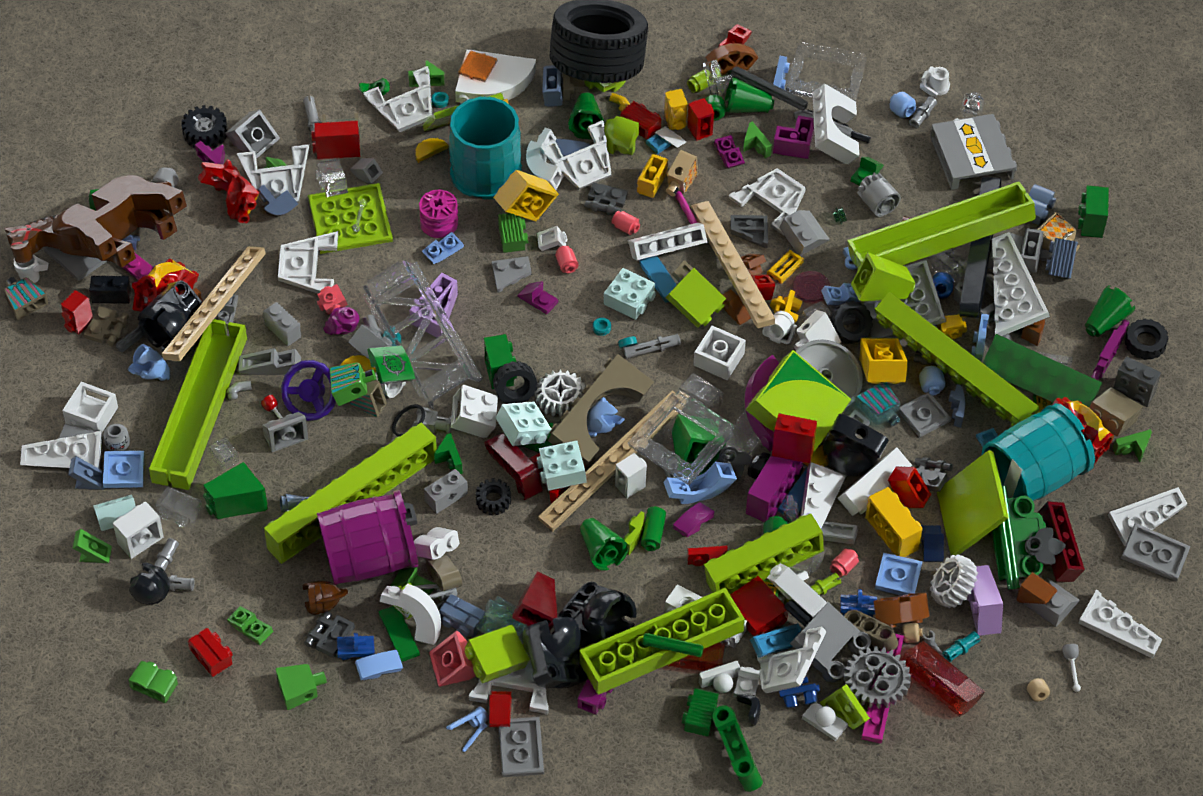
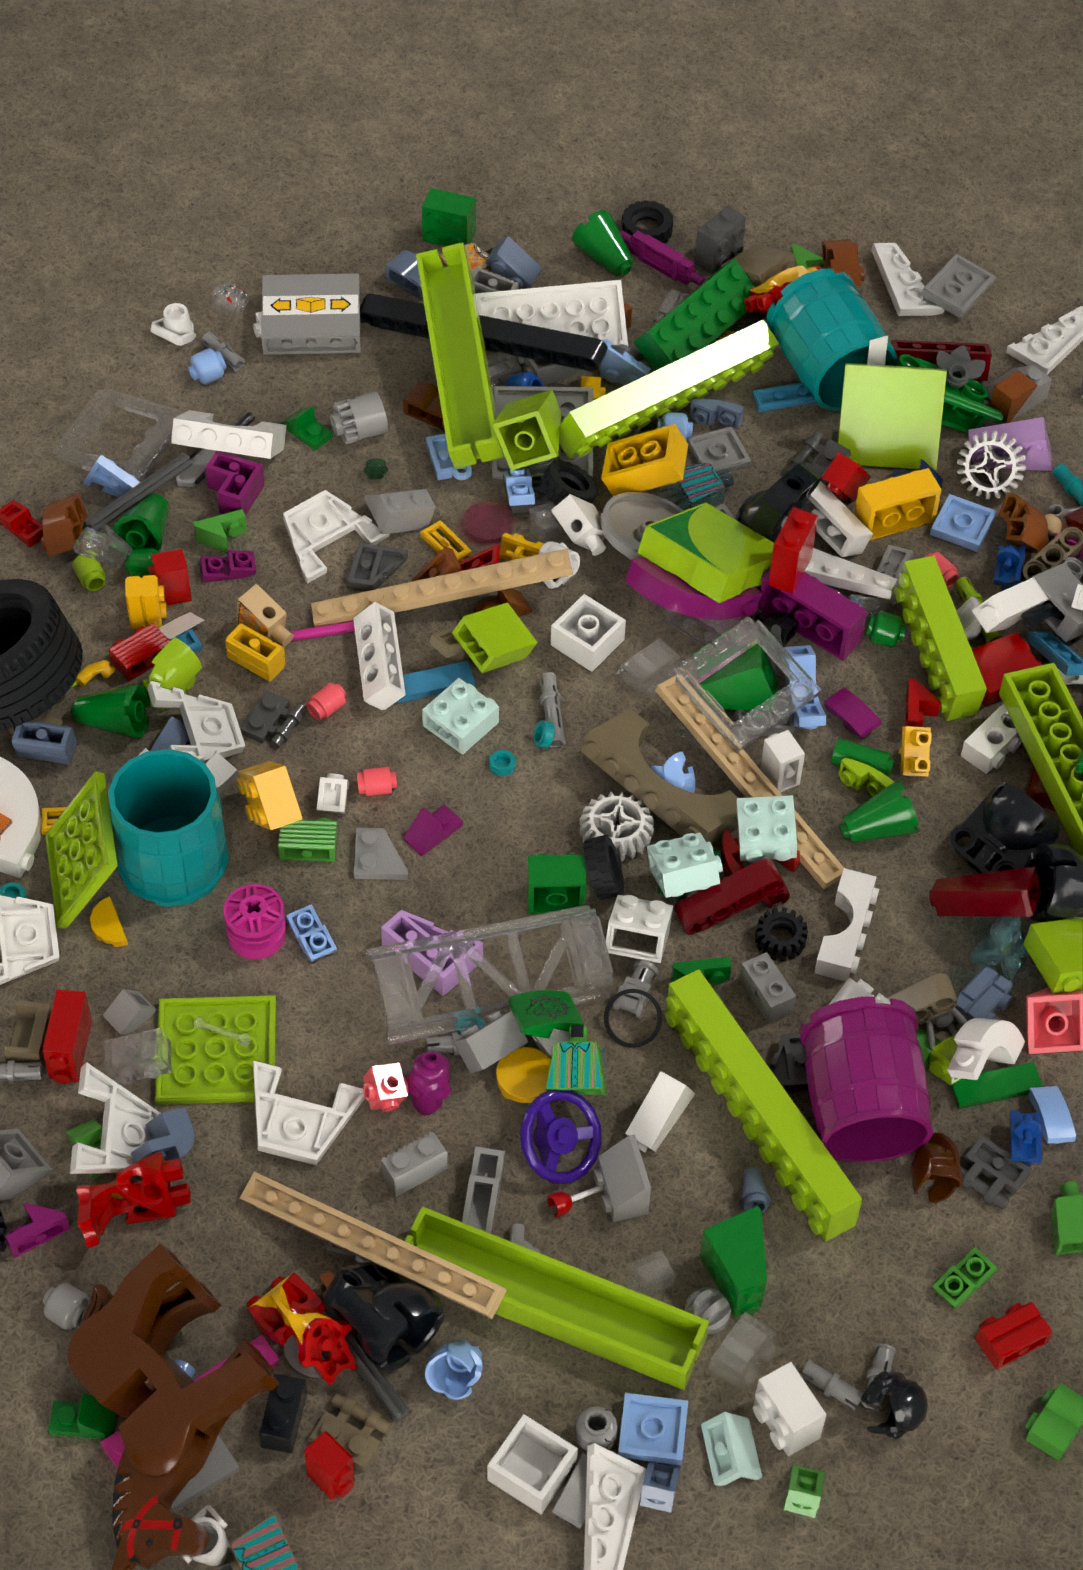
camera: 80 degrees left, 0 degrees up
(197, 482) = (710, 1305): none -> light grey piece
(341, 442) = (659, 1111): none -> white slope
(530, 536) = (838, 951): none -> white arch
(663, 557) = (915, 751): none -> yellow hips
(1147, 468) = (843, 256): none -> dark orange brick

